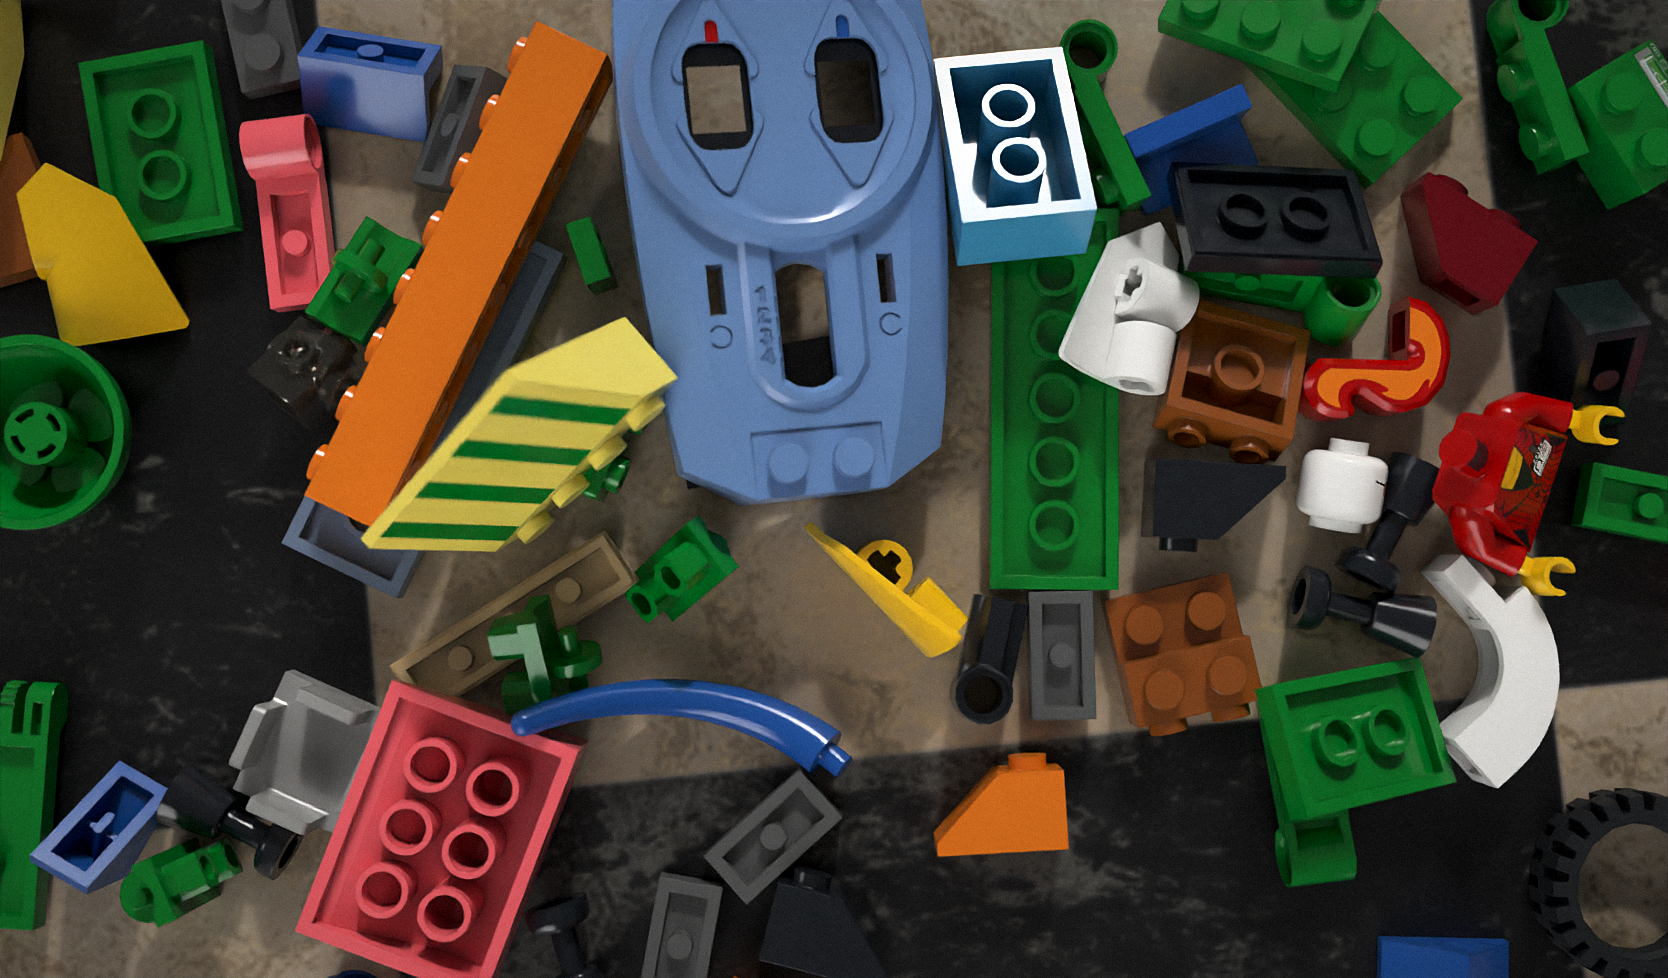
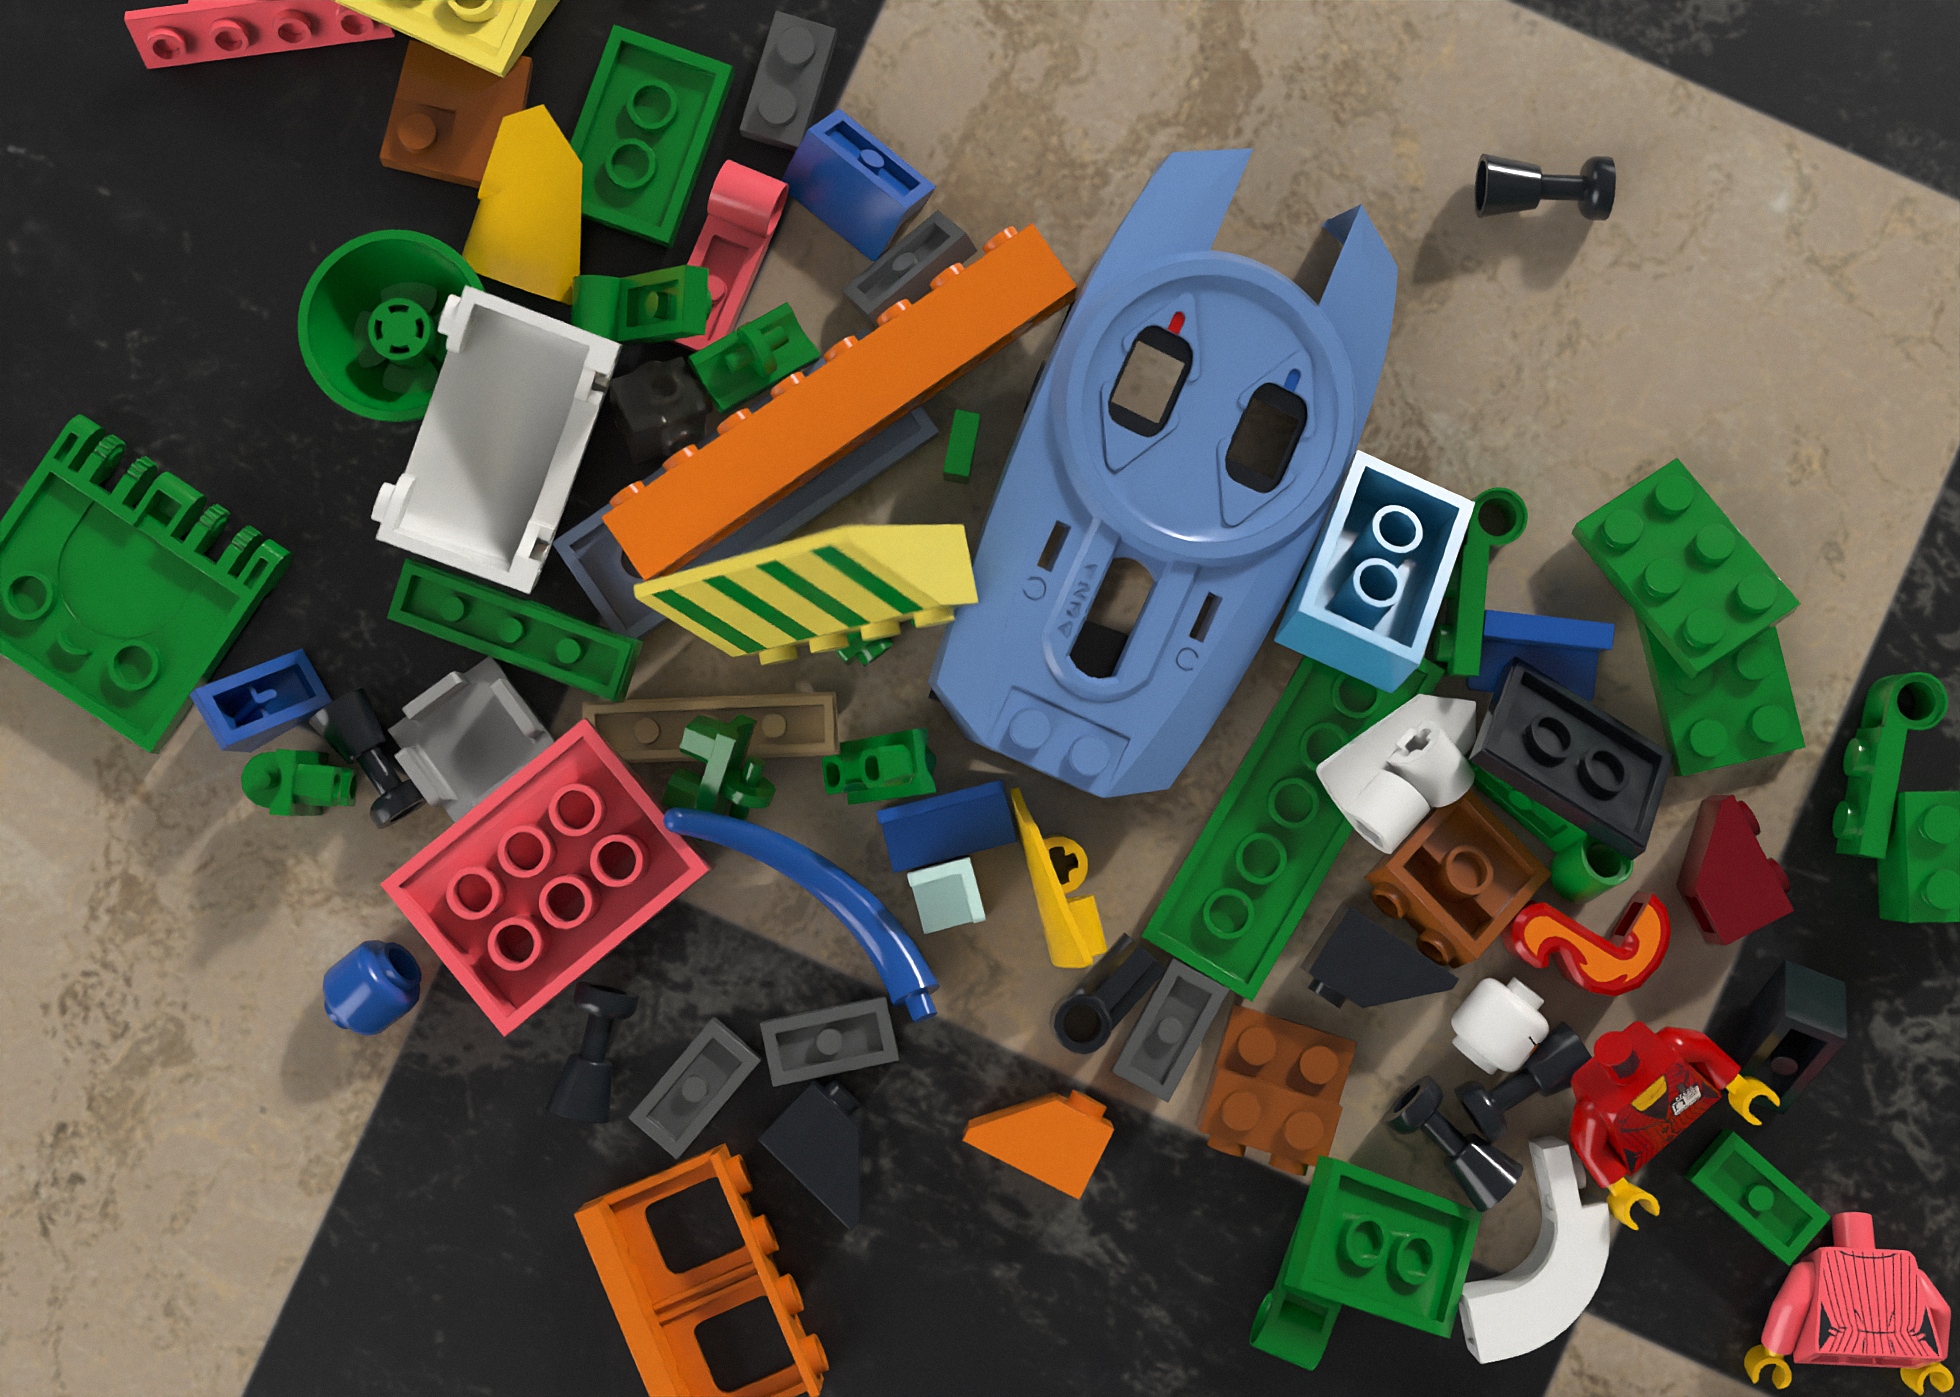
camera: 30 degrees right, 0 degrees up
(176, 477) = (499, 440): none -> white windscreen
(239, 294) = (643, 306): none -> green plate
(294, 637) = (515, 630): none -> green tile
(767, 590) = (947, 826): none -> blue panel
(802, 650) = (947, 895): none -> light aqua panel

